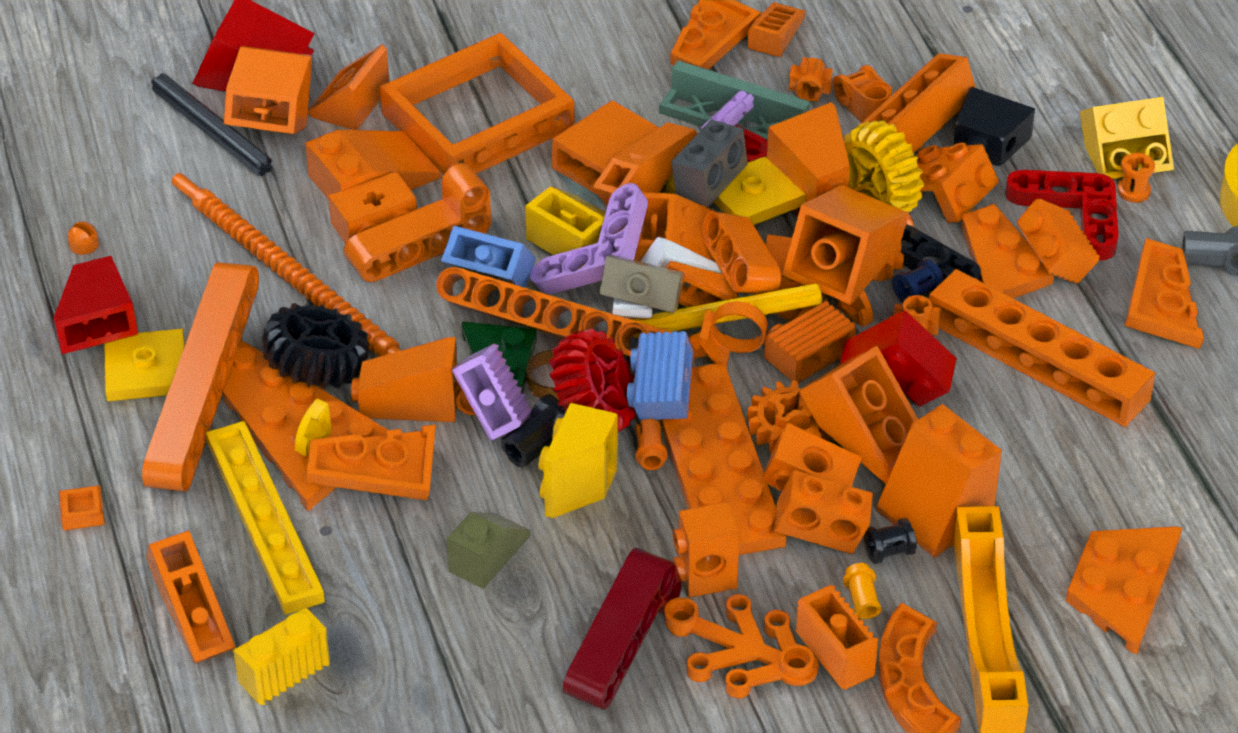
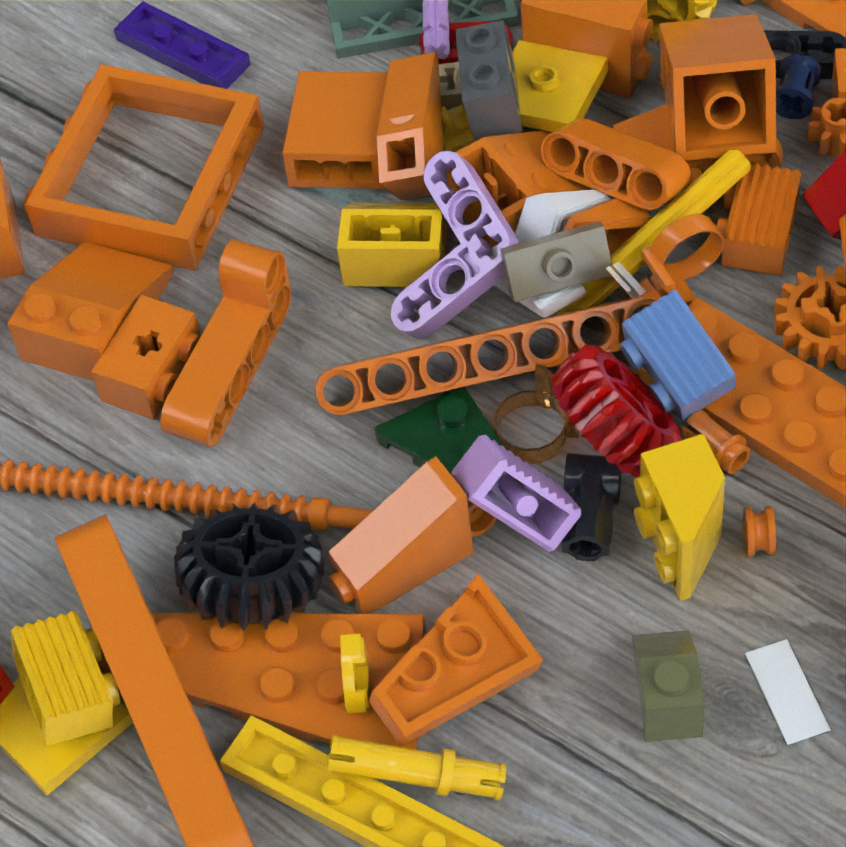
camera: 30 degrees left, 10 degrees up
(159, 337) = (63, 677): none -> yellow brick
(315, 509) = (417, 767): none -> yellow pin
(489, 256) = (342, 335): medium blue brick -> none
(554, 596) = (787, 692): none -> white sticker
(570, 54) = (181, 46): none -> dark purple tile
(622, 502) = (759, 531): none -> orange bush
(672, 316) = (626, 280): none -> white sticker

